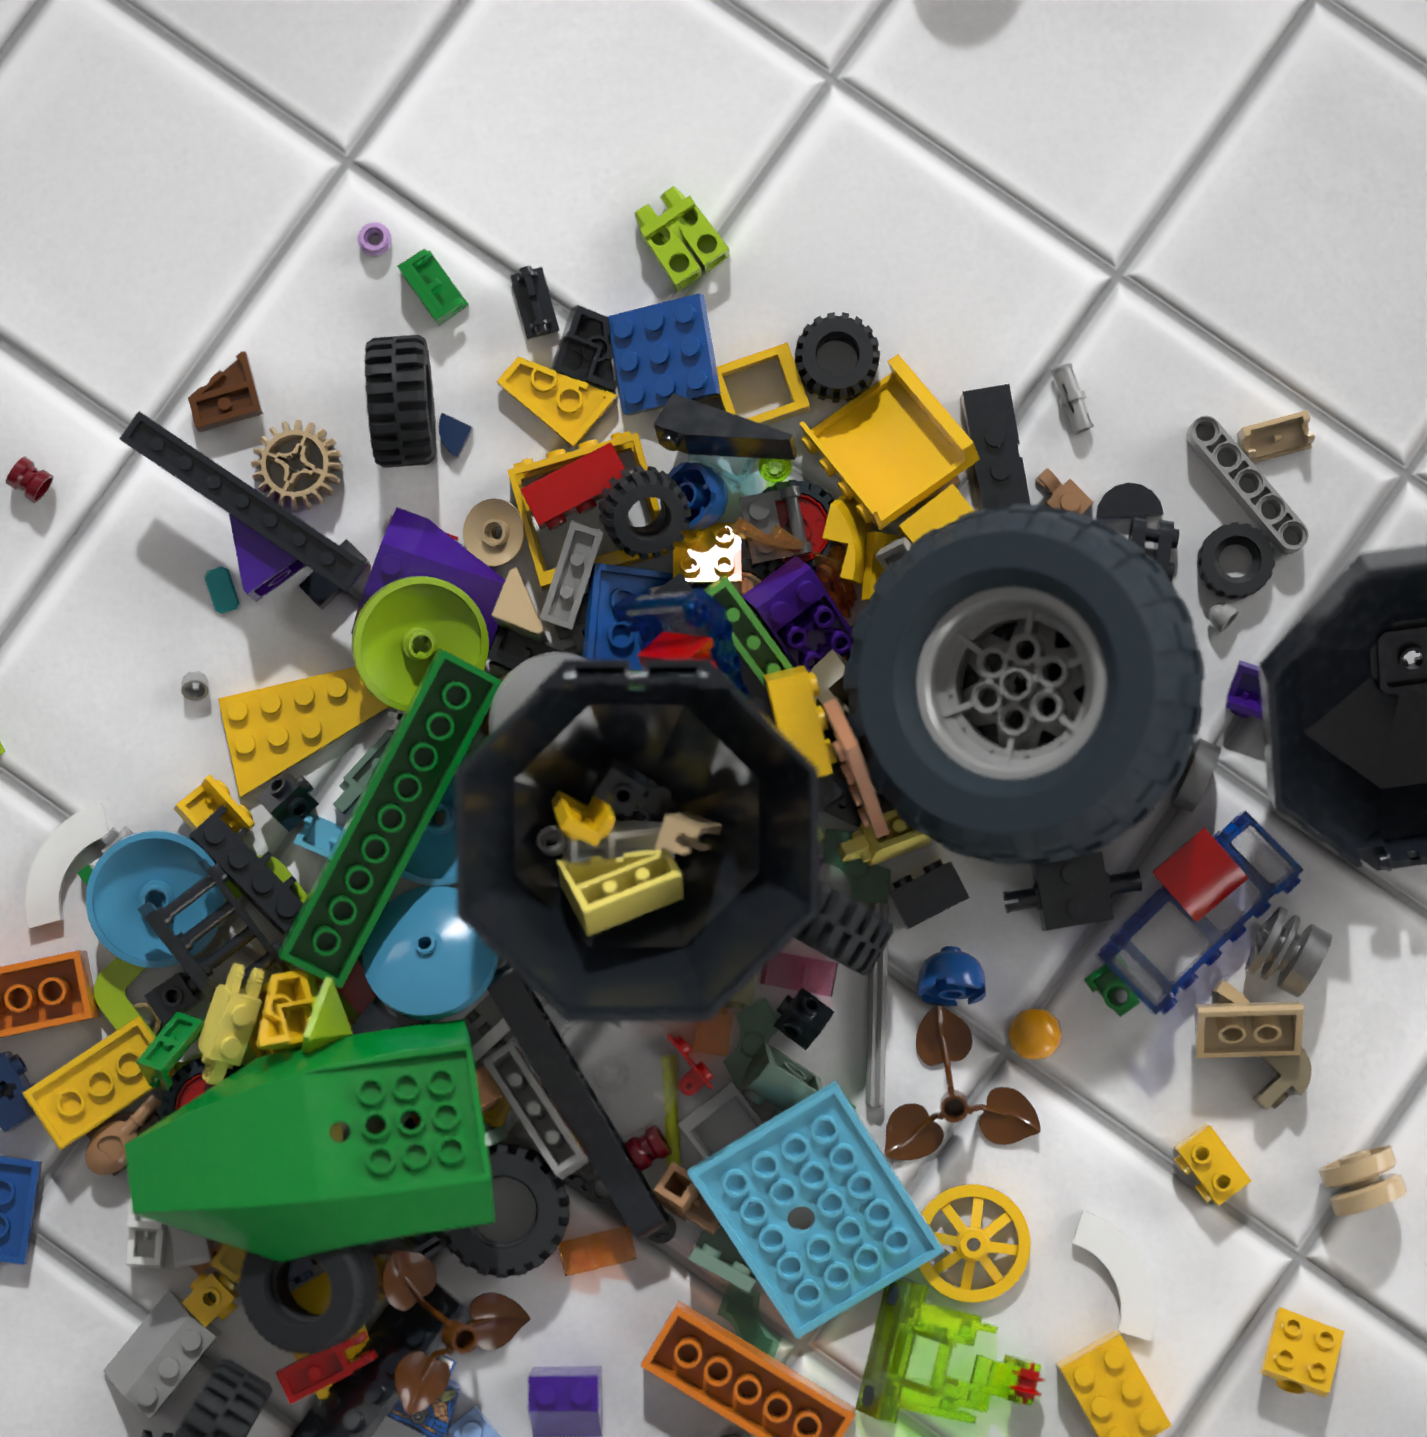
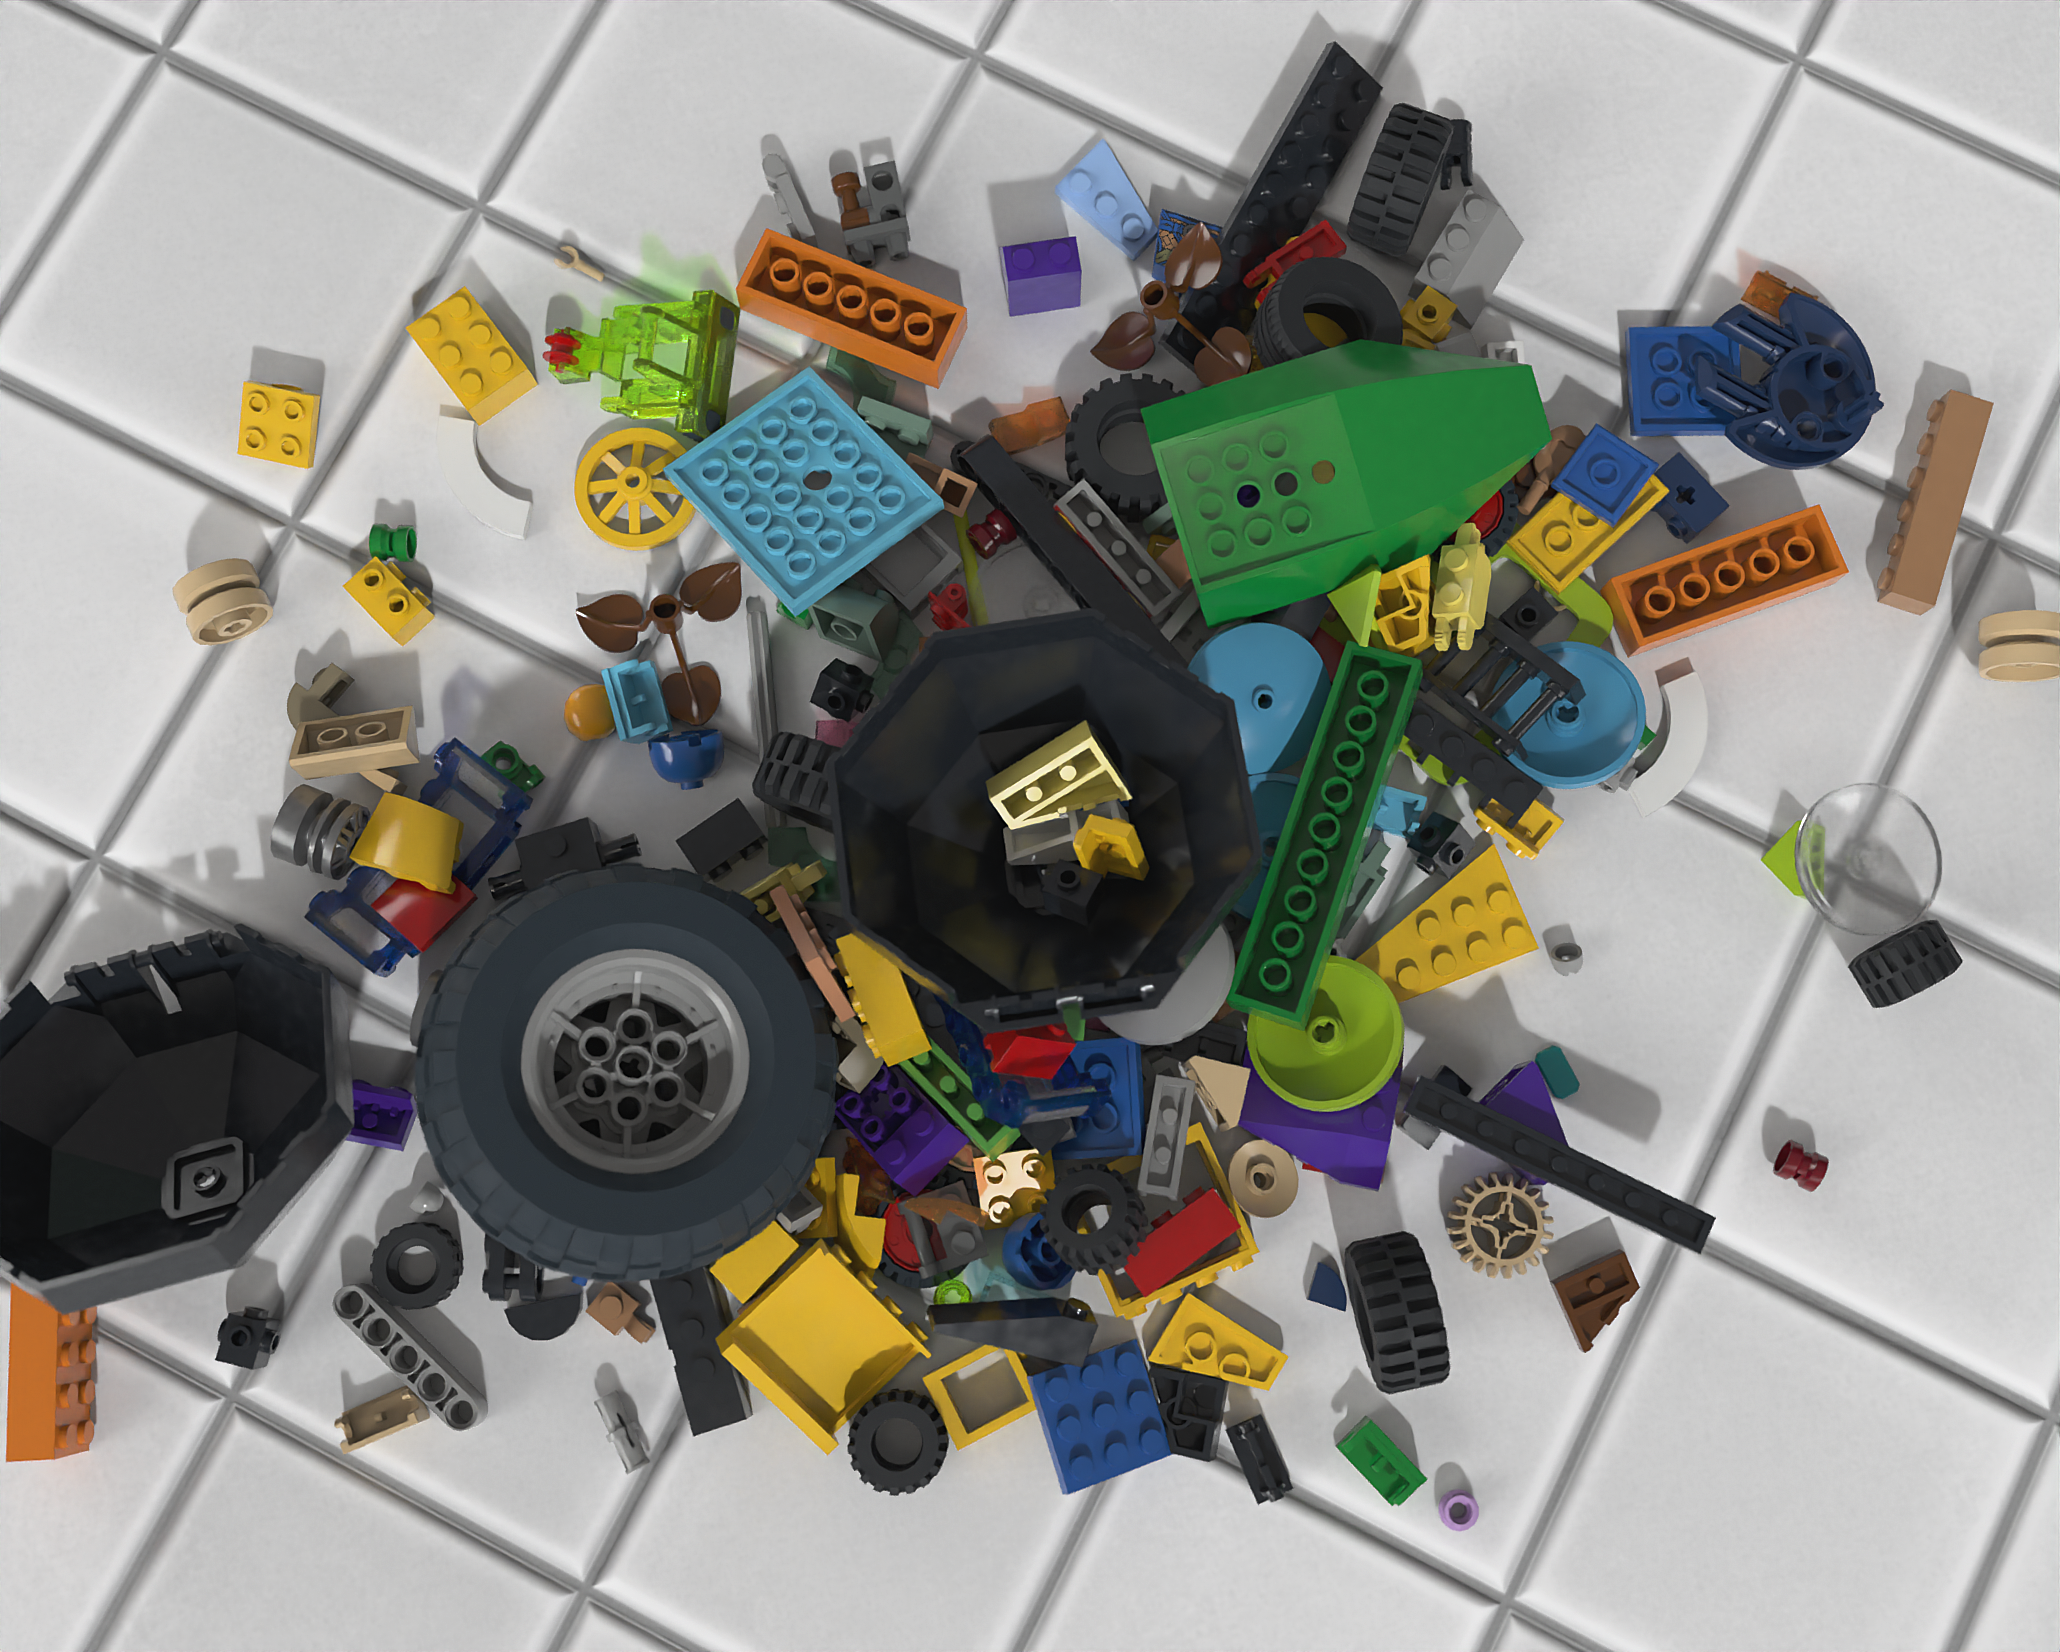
camera: 170 degrees right, 5 degrees down
(78, 1115) = (1604, 475): none -> blue tile
(168, 1049) = (1521, 557): green hinge -> none
(552, 835) = (1143, 831): light grey hinge -> none
(673, 229) = (1108, 1573): lime hips -> none
(683, 830) = (994, 856): tan hinge -> none
(992, 1036) = (637, 701): none -> medium azure hinge
(1204, 1221) = (393, 542): none -> green wheel
(1206, 928) = (411, 842): none -> yellow slope
(1393, 510) = (248, 1338): none -> black brick

